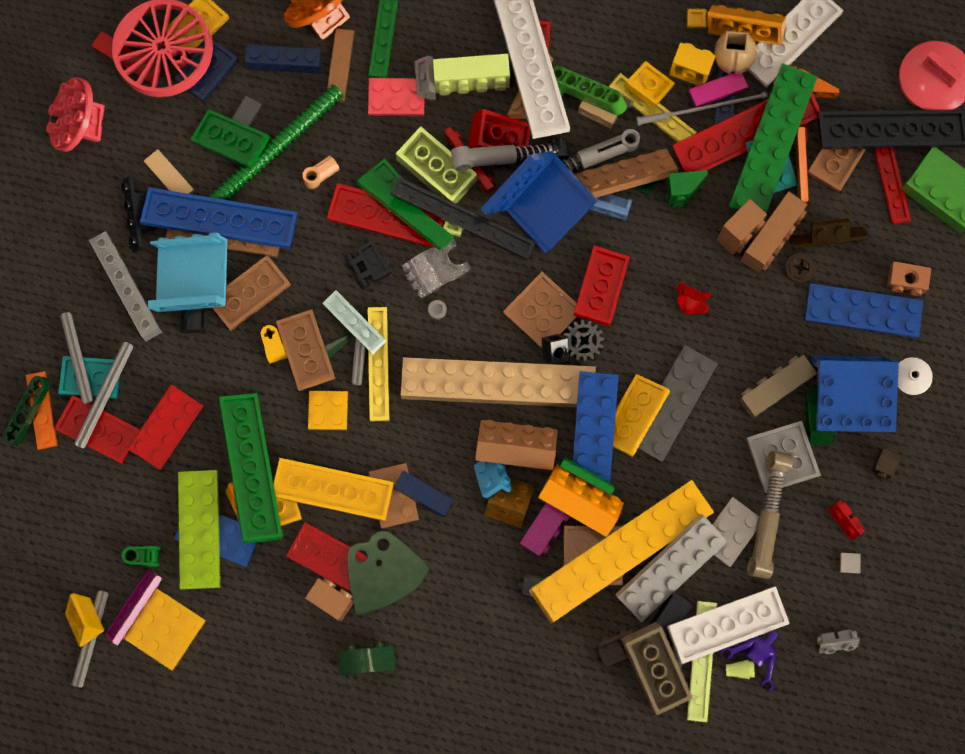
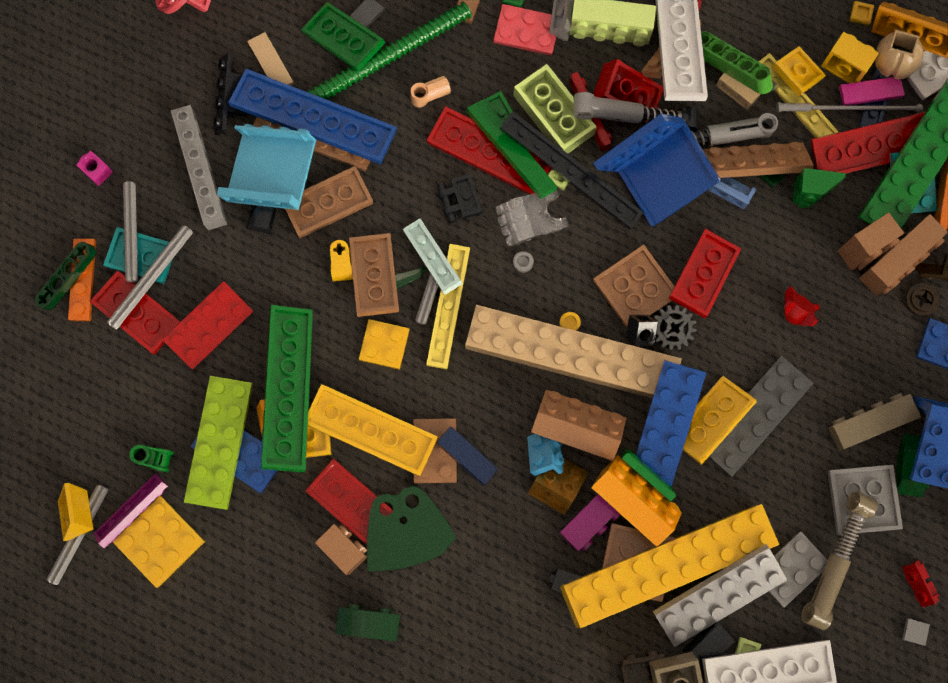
camera: 10 degrees right, 0 degrees up
(35, 312) = (98, 175): none -> dark pink brick
(490, 354) = (570, 321): none -> yellow tile

